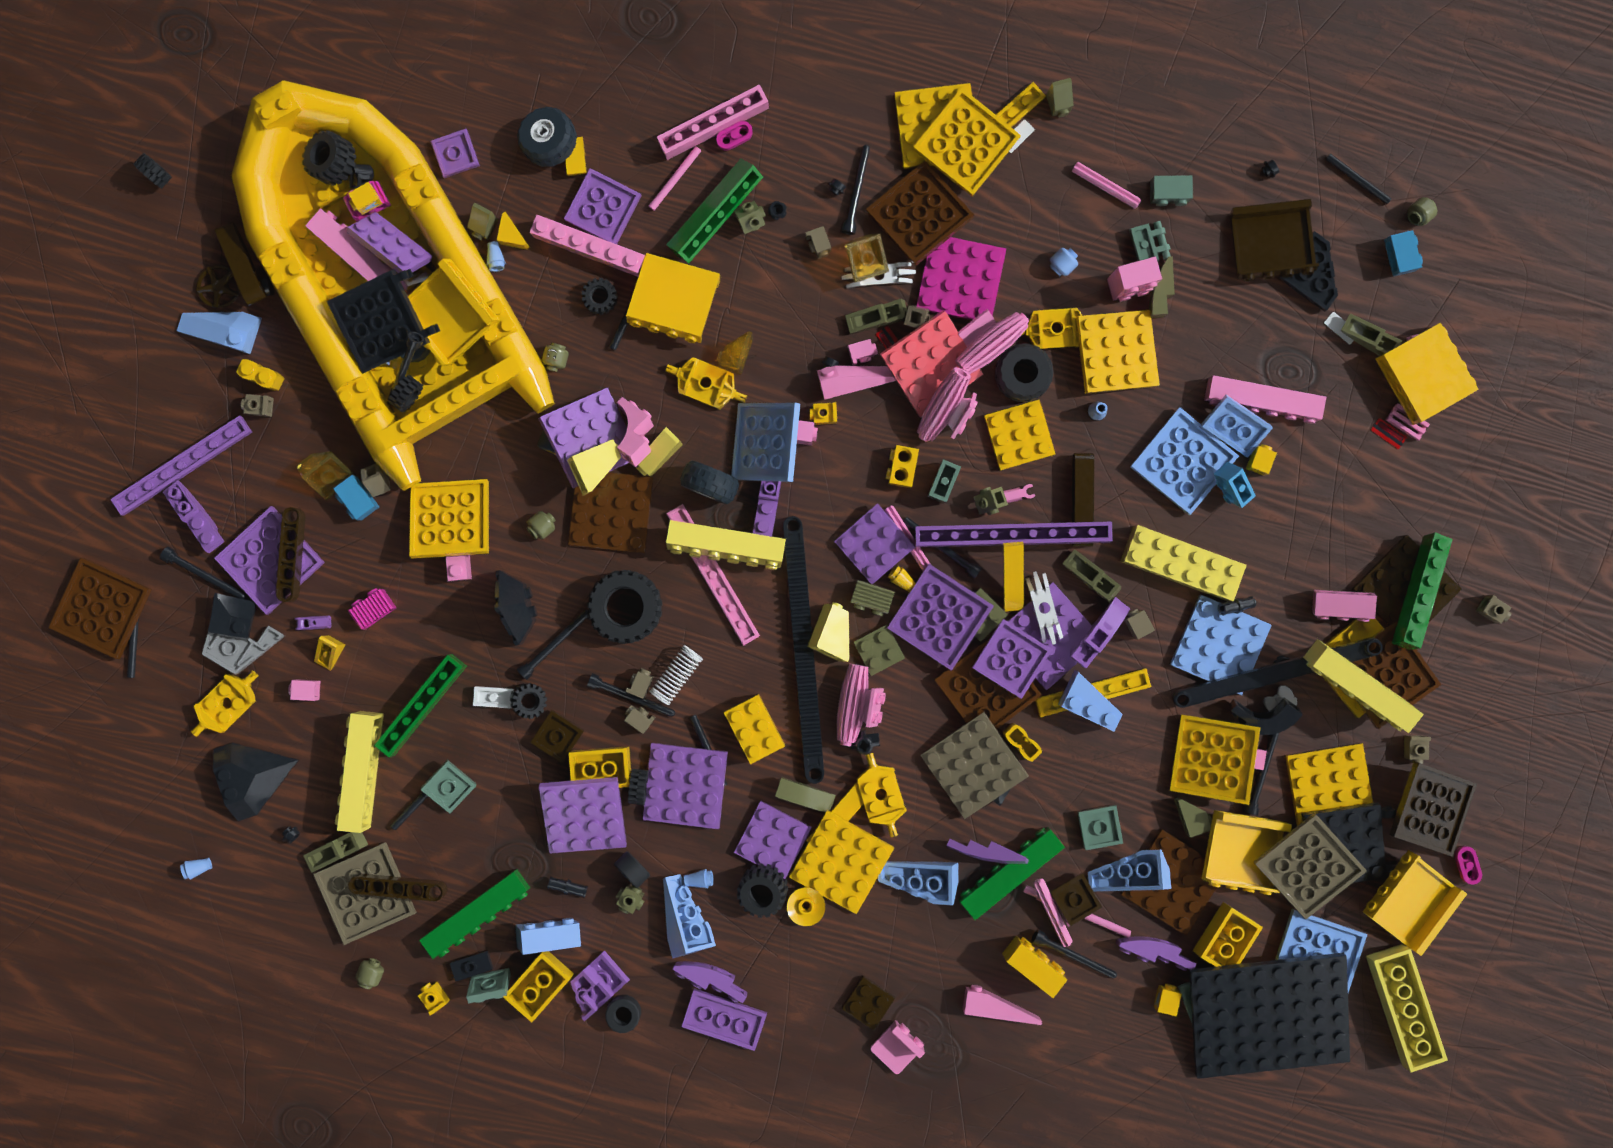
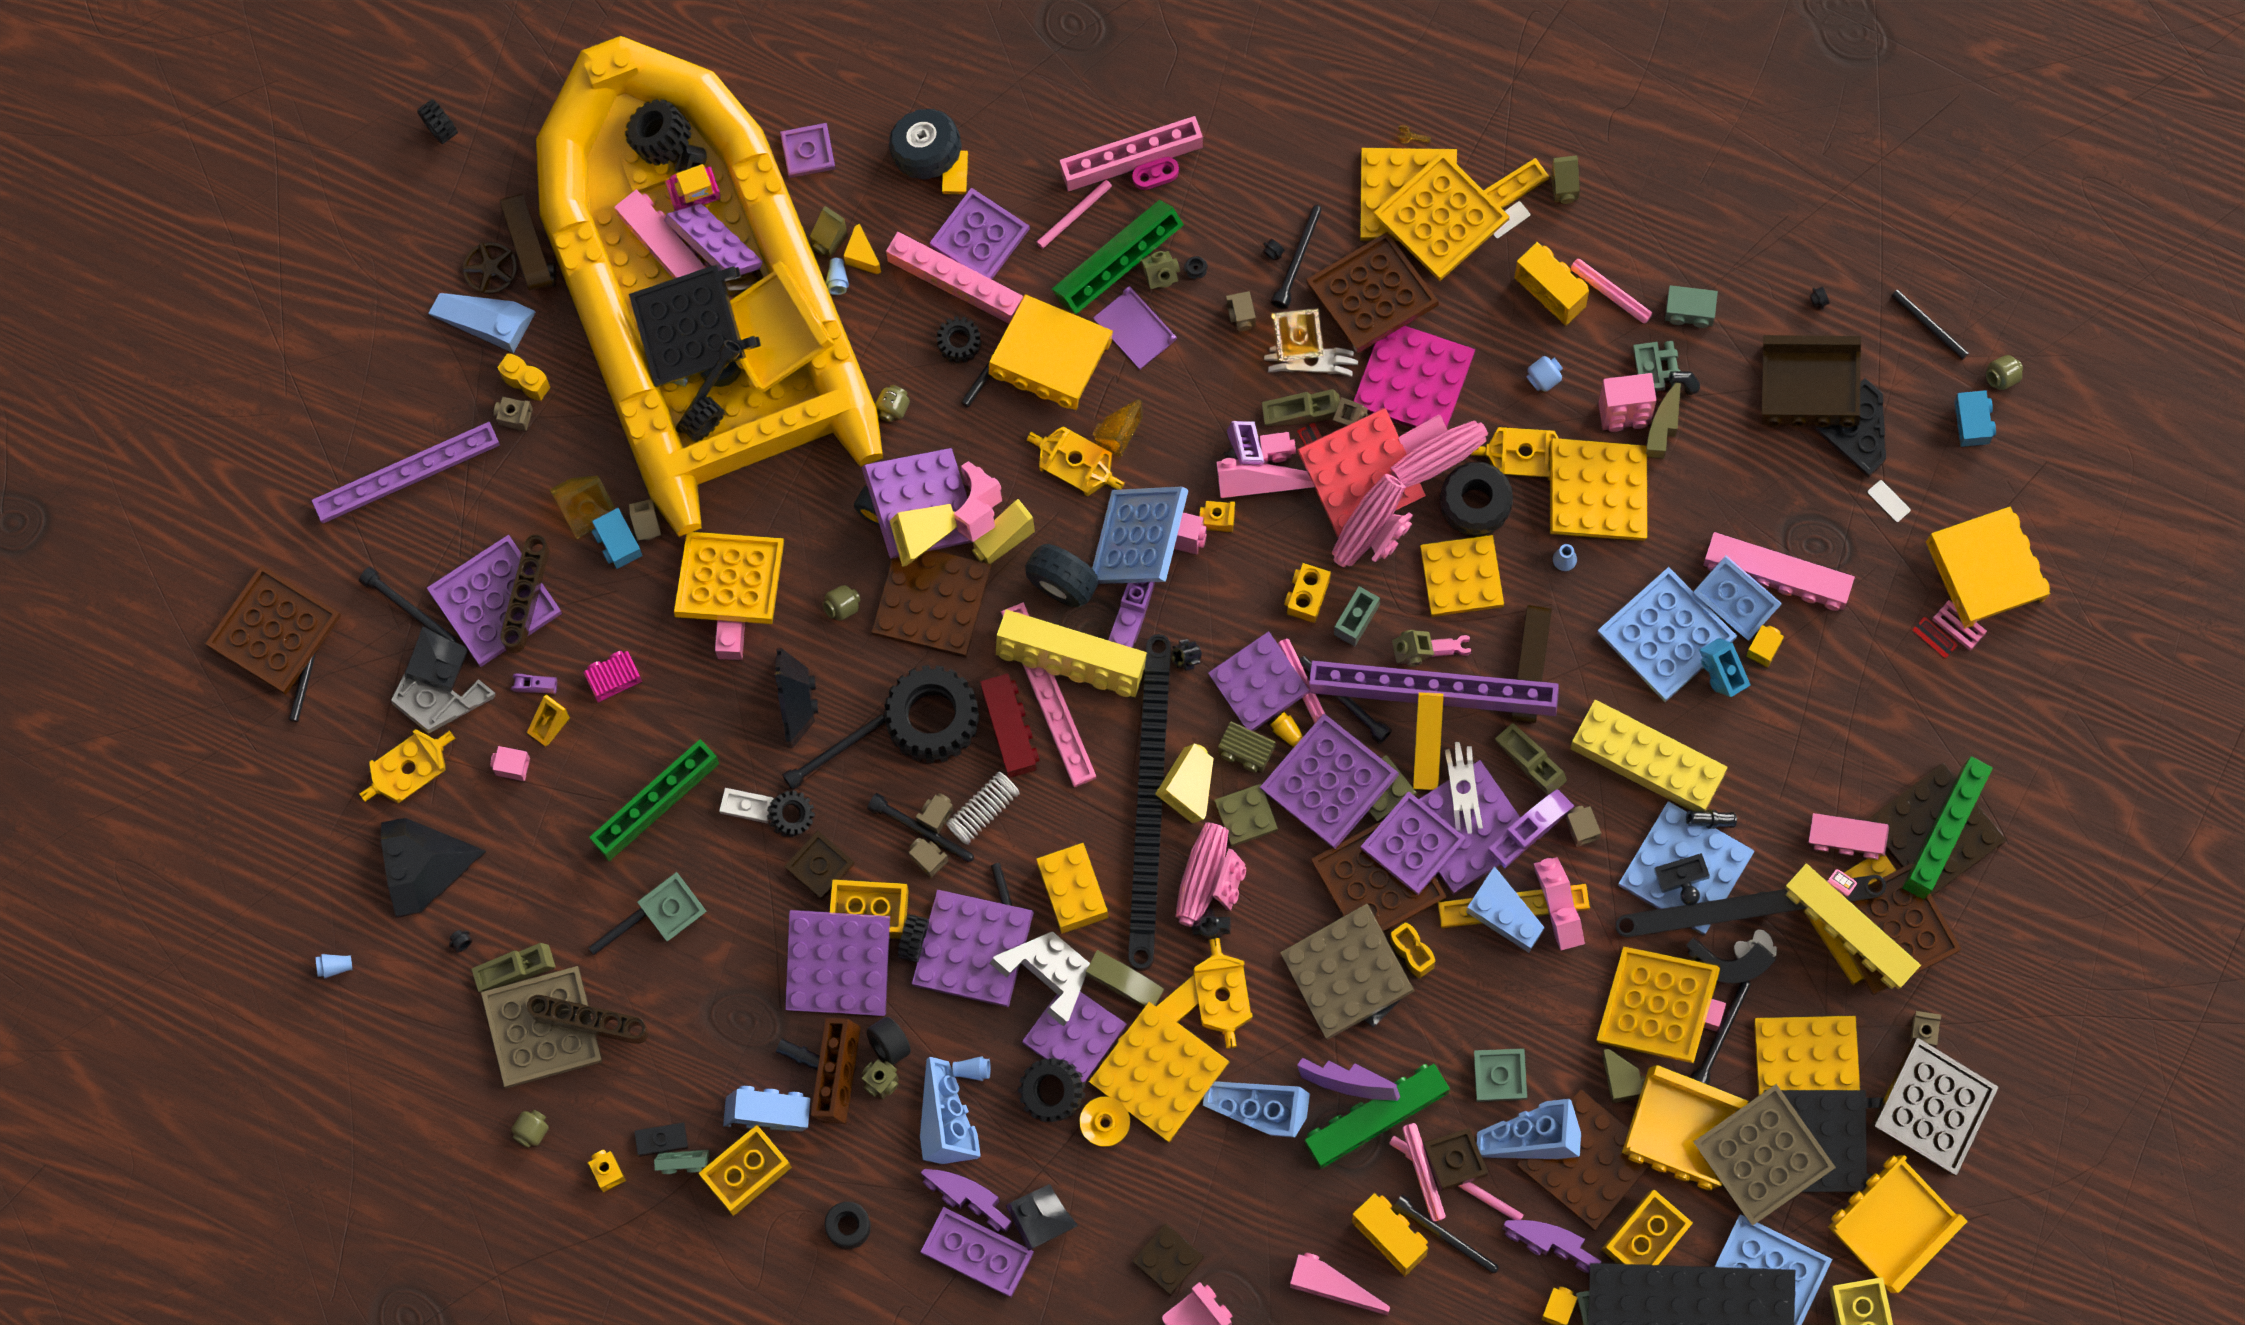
camera: 15 degrees right, 15 degrees down
(194, 515) = (410, 534): medium lavender slope -> none
(360, 772) = (564, 869): light yellow brick -> none
(474, 914) = (677, 1072): green brick -> none
(595, 899) = (835, 1071): none -> reddish brown brick
(597, 984) = (820, 1185): medium lavender slope -> none
(686, 606) = (1008, 725): none -> dark red brick
(737, 266) = (1135, 328): none -> medium lavender piece
(750, 792) = (1052, 963): none -> wing
(768, 987) = (1040, 1217): none -> black plate
(815, 530) = (1186, 654): none -> black gear
(838, 340) = (1246, 429): none -> medium lavender slope
(932, 76) = (1411, 136): none -> clear yellow hand
(1061, 186) = (1552, 283): none -> yellow brick
(1129, 687) = (1560, 903): none -> bright pink arch
(1175, 251) = (1687, 379): none -> black arm
(1222, 654) = (1683, 874): none -> black plate
(1348, 650) = (1842, 883): none -> slope
(1369, 335) = (1918, 510): olive slope -> none
(1467, 864) = (1978, 1190): dark pink plate -> none
(1488, 609) = (2036, 871): dark tan brick -> none

